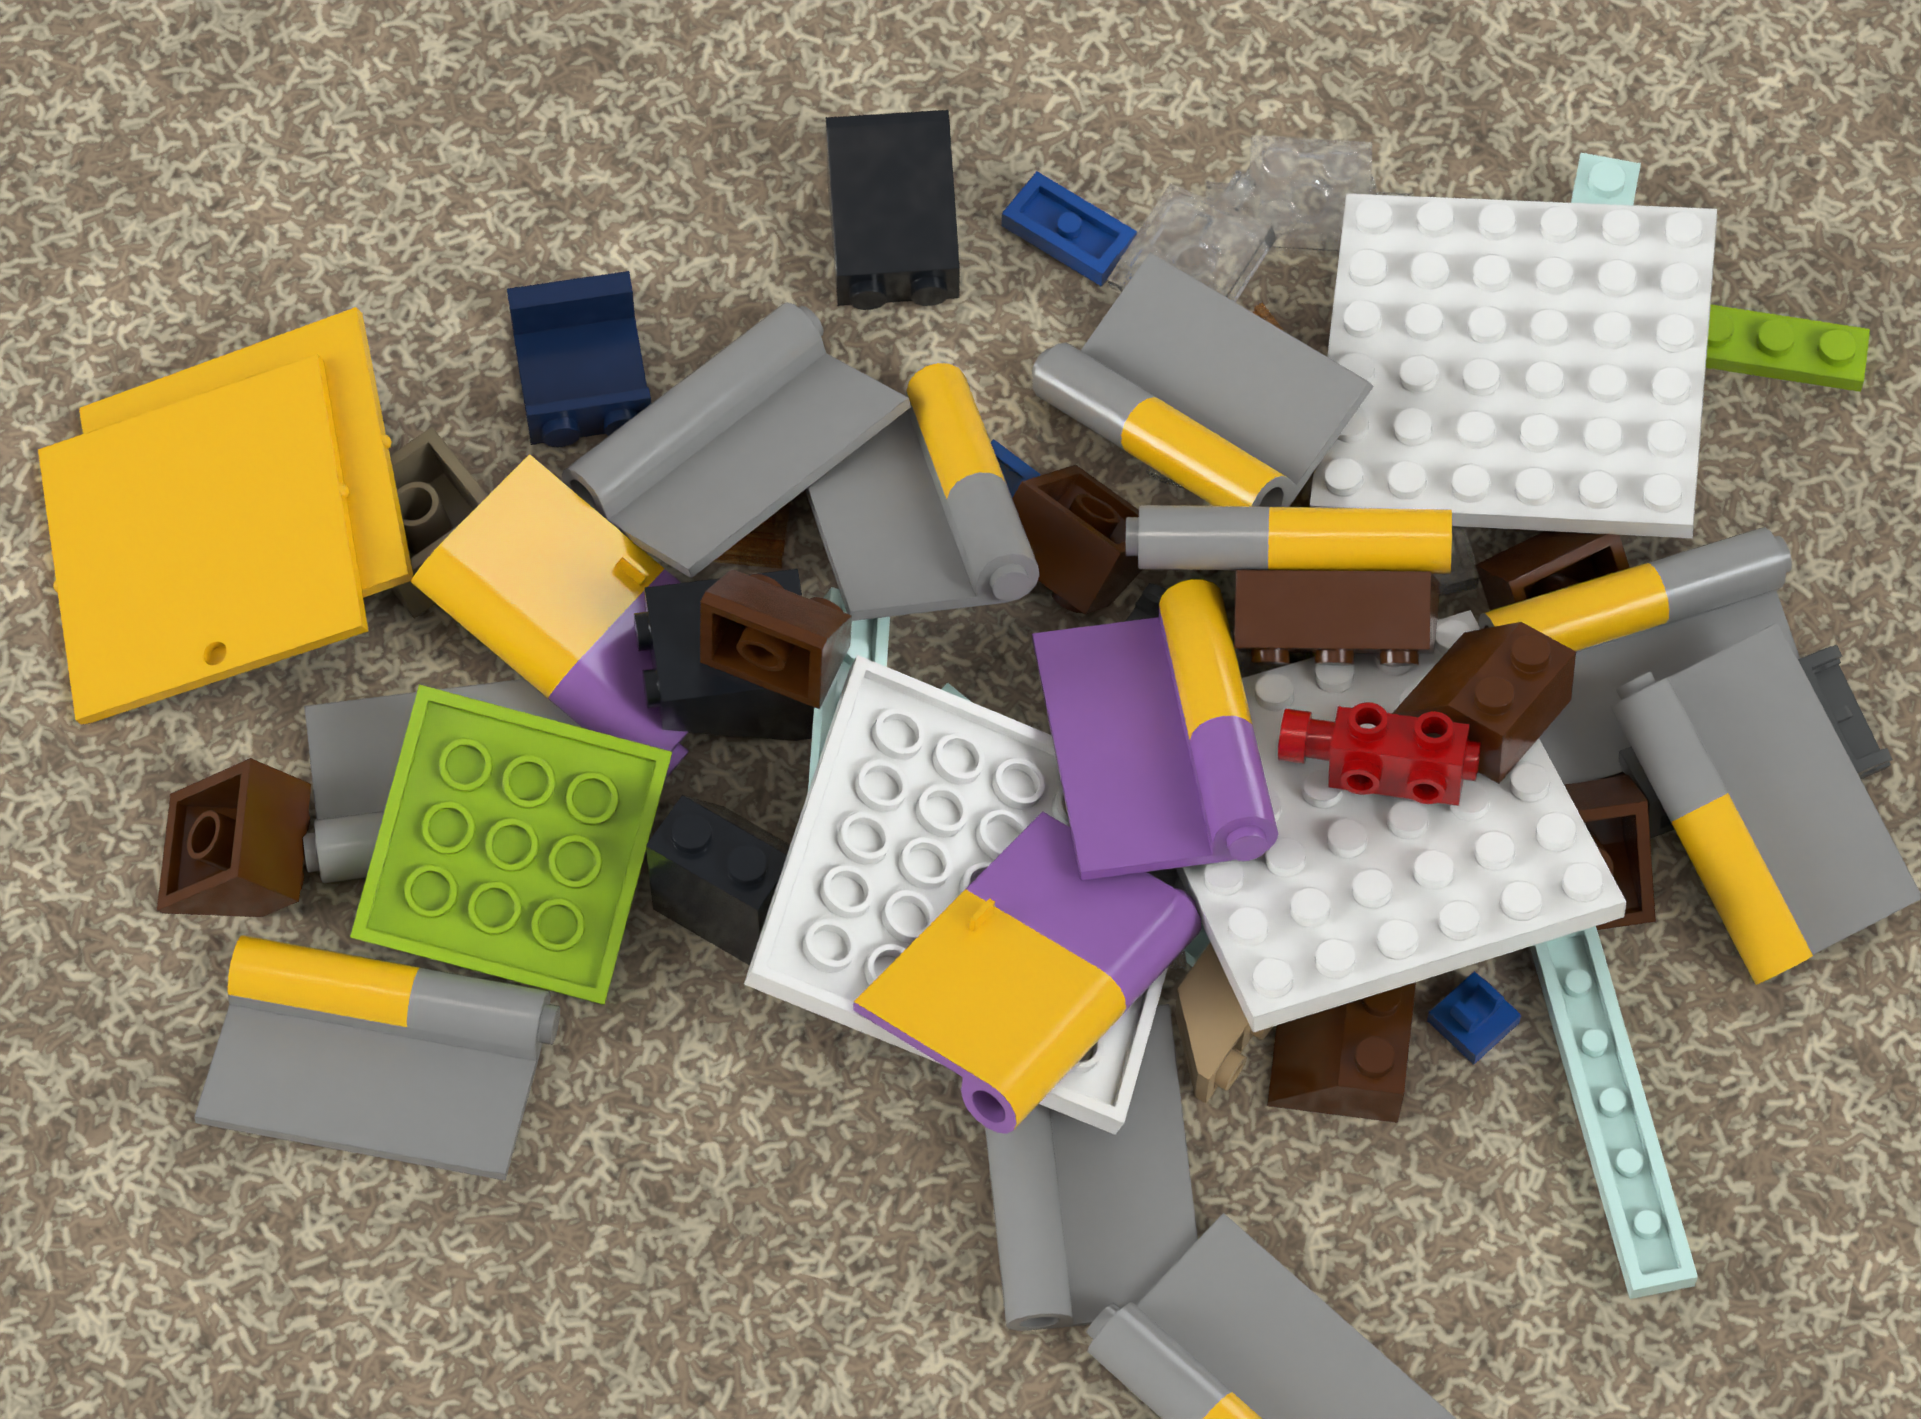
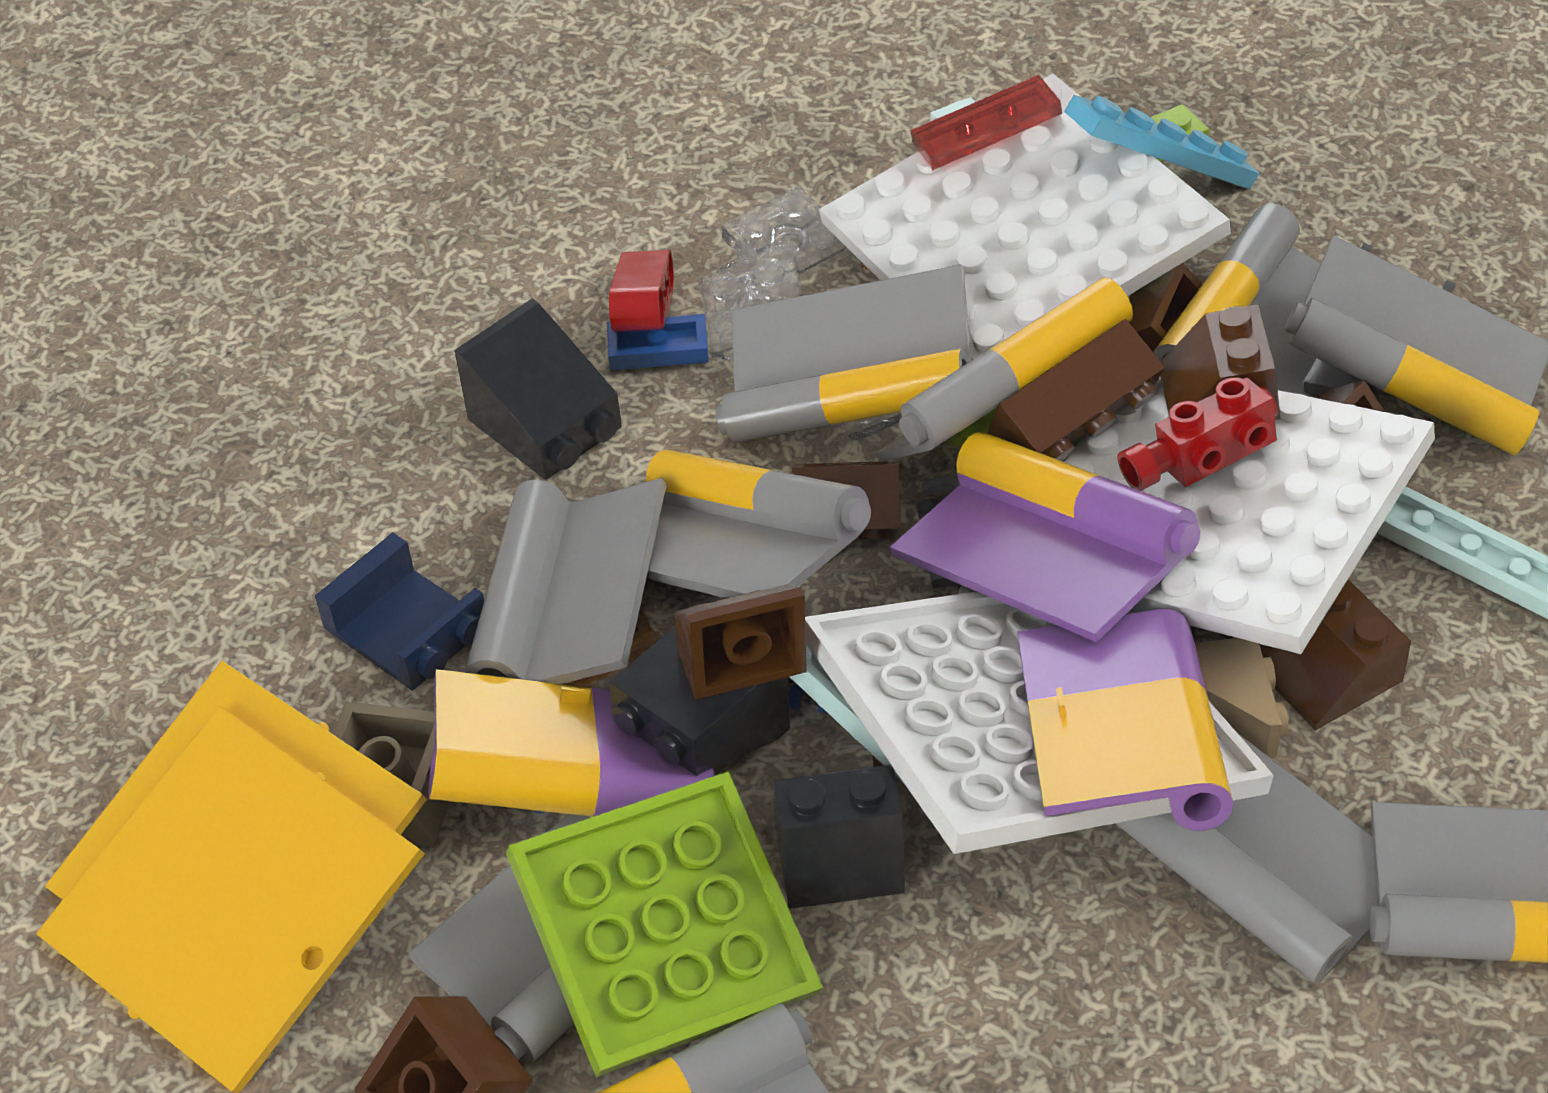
camera: 35 degrees left, 15 degrees down
(1094, 161) = (641, 291): none -> red beam
(1474, 1017) = (1384, 582): blue tile -> none
(1579, 222) = (986, 122): none -> clear red tile
(1740, 378) = (1162, 140): none -> medium azure plate

